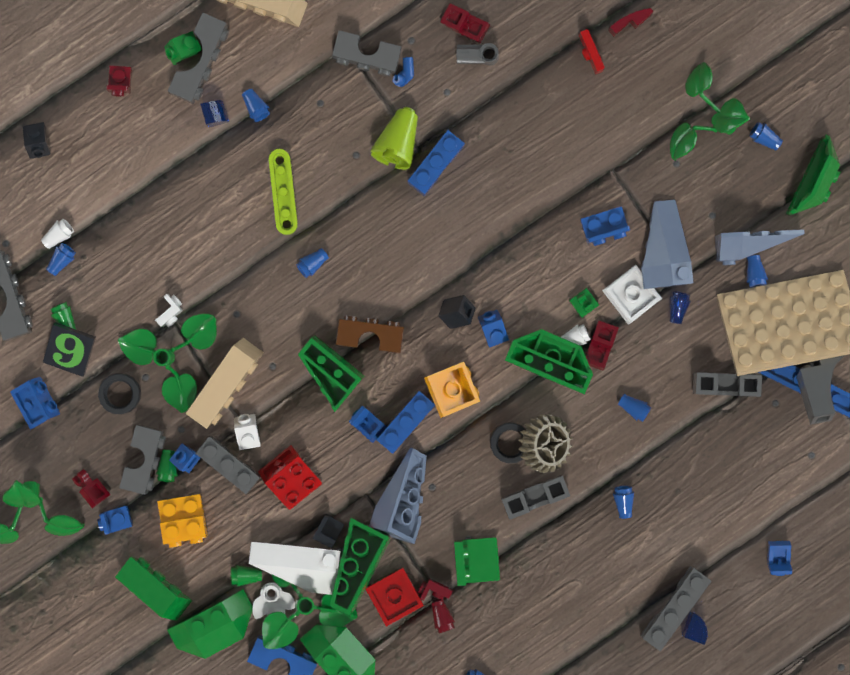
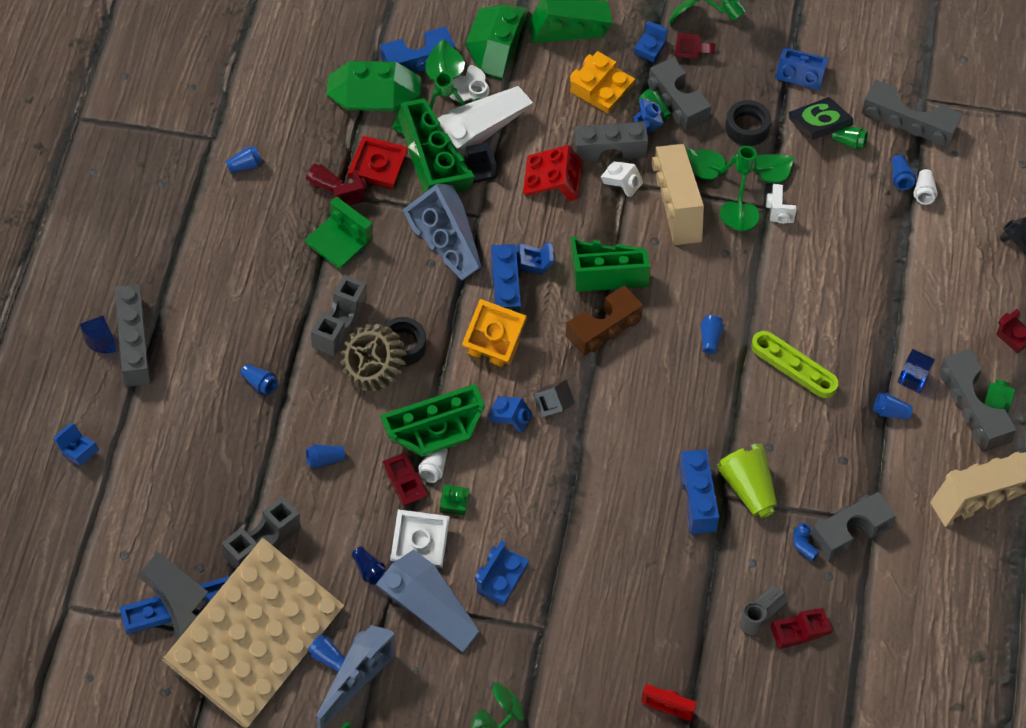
camera: 140 degrees right, 30 degrees down
(245, 575) = (512, 79): green cone -> none

